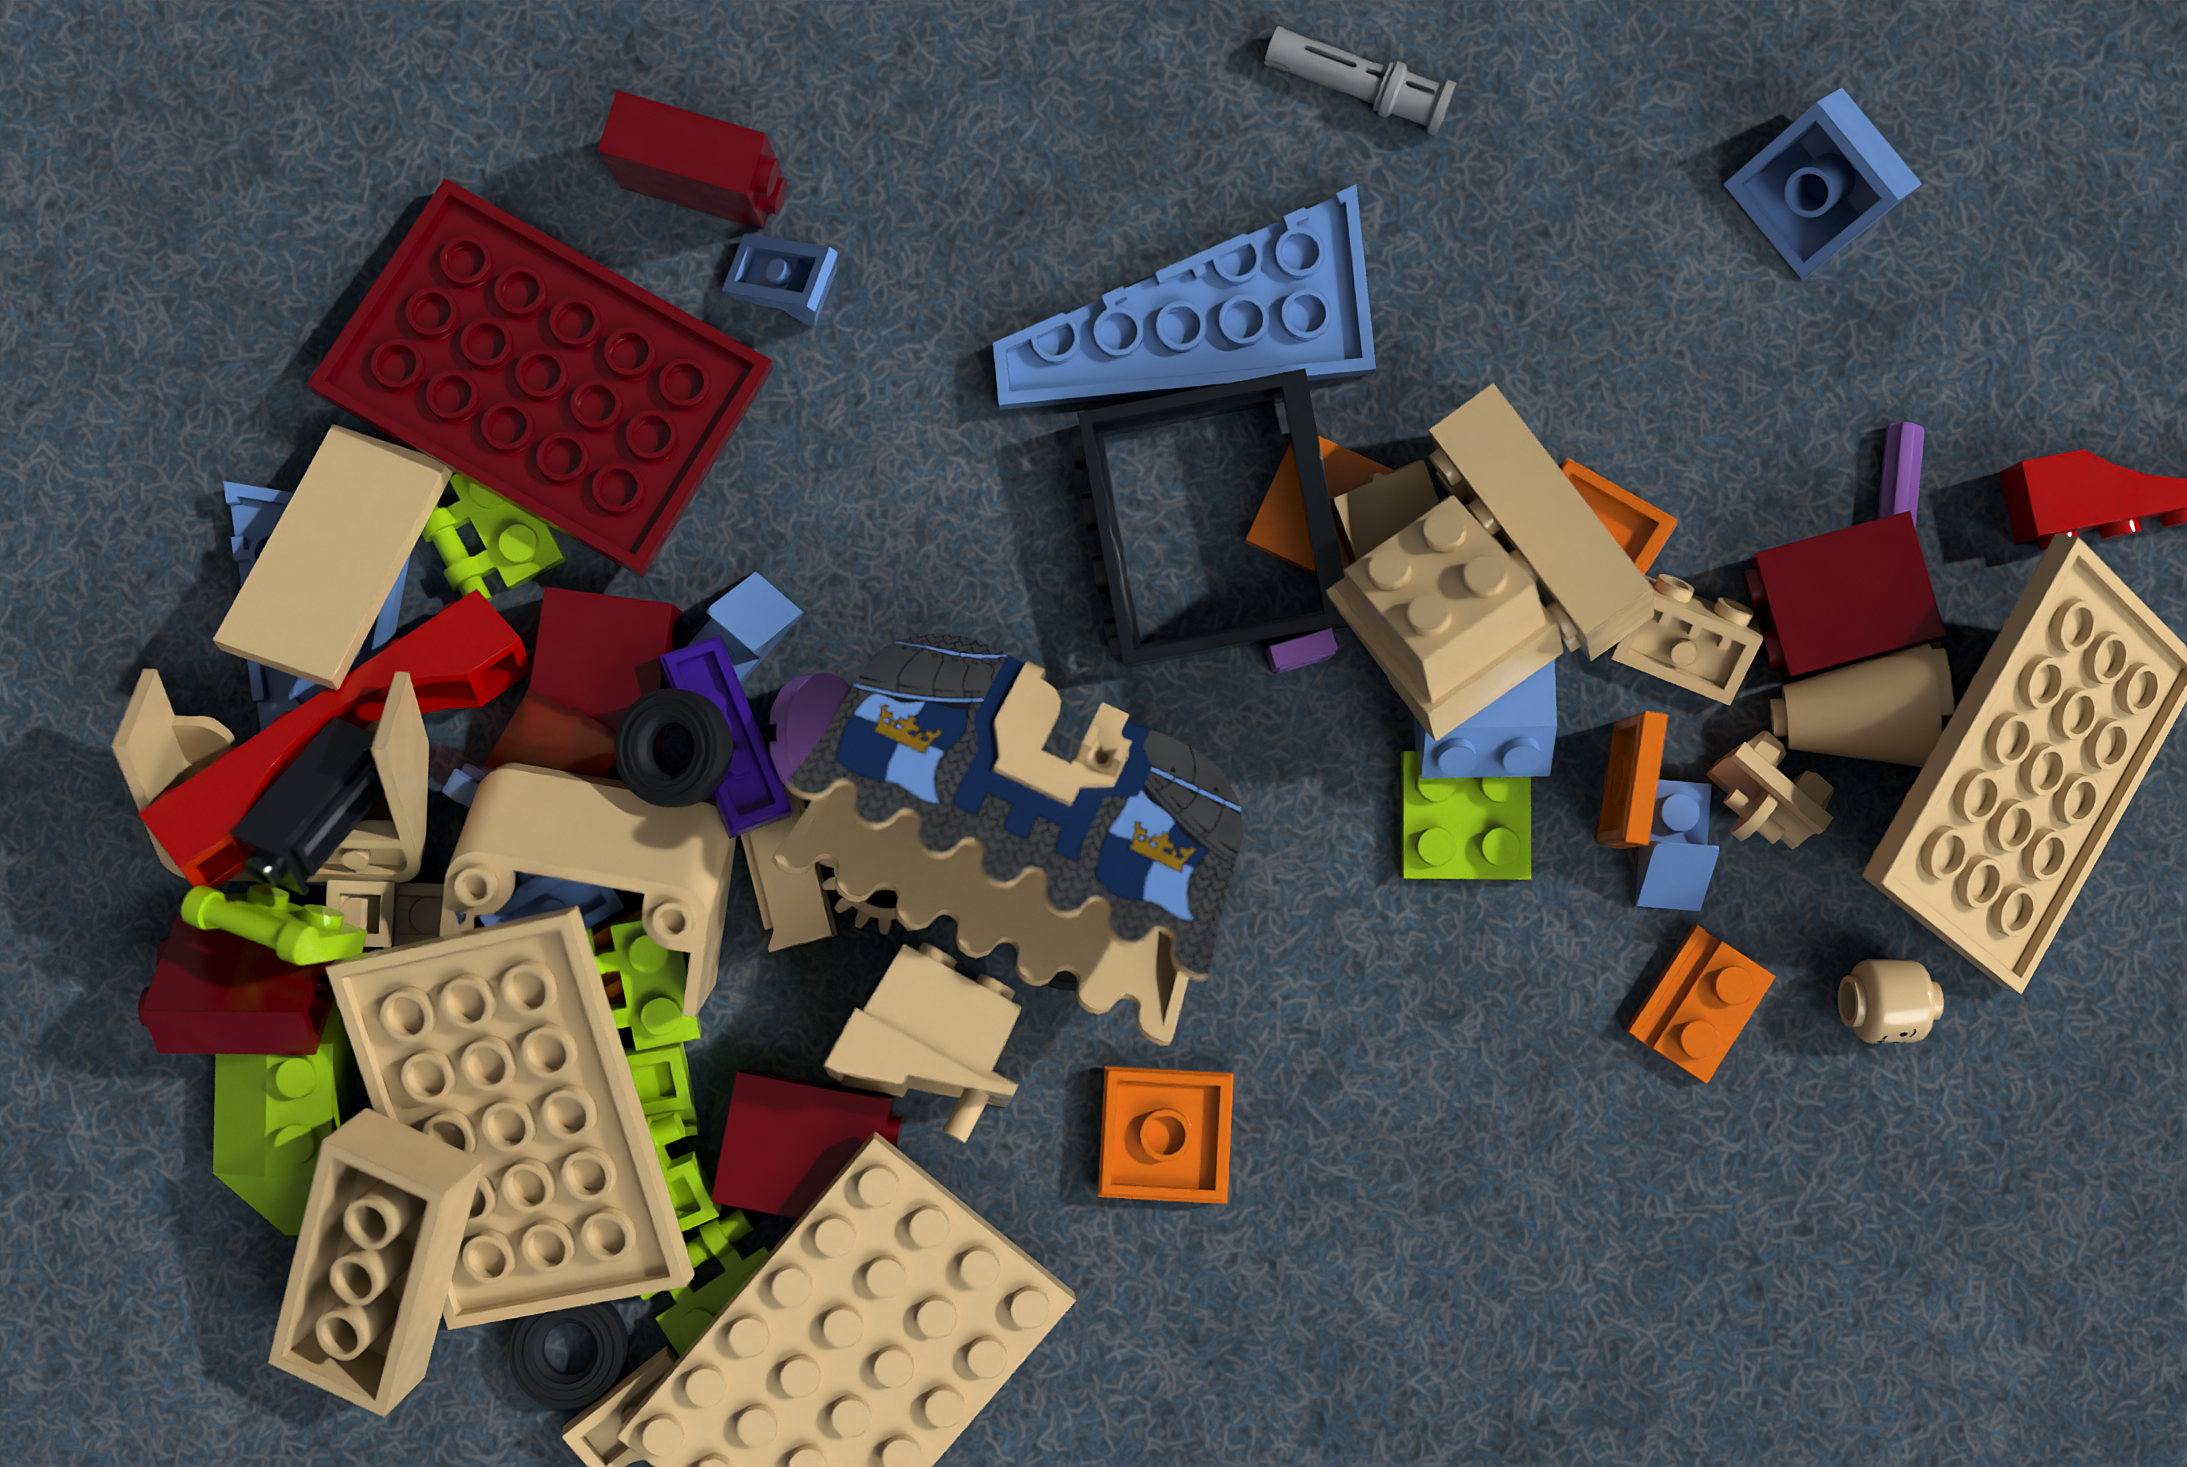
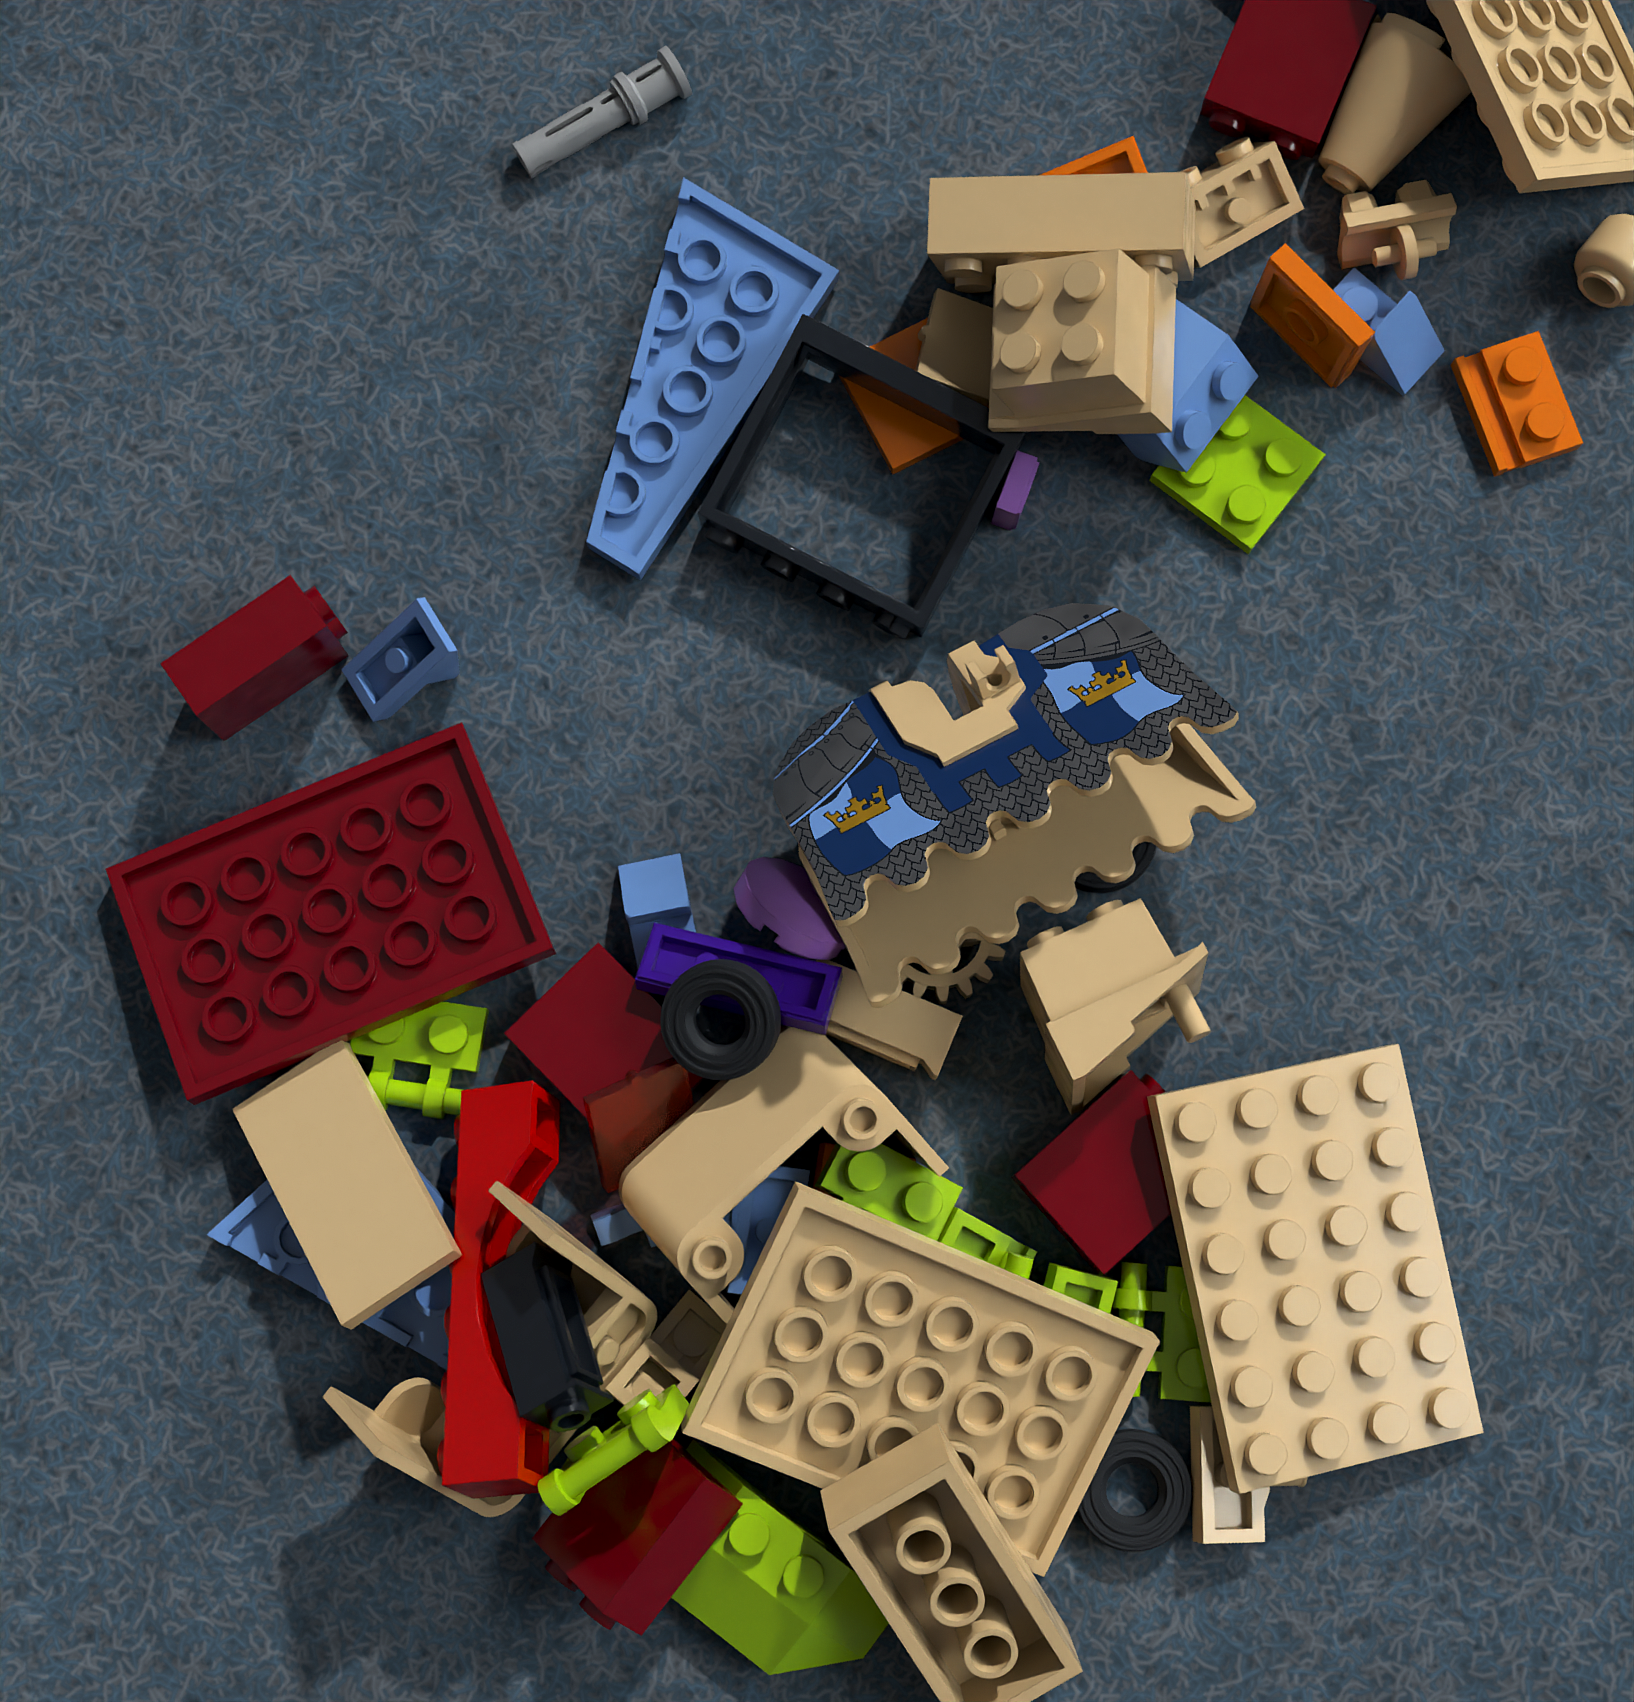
camera: 50 degrees left, 5 degrees down
(1165, 1134) = (1315, 881): orange plate -> none

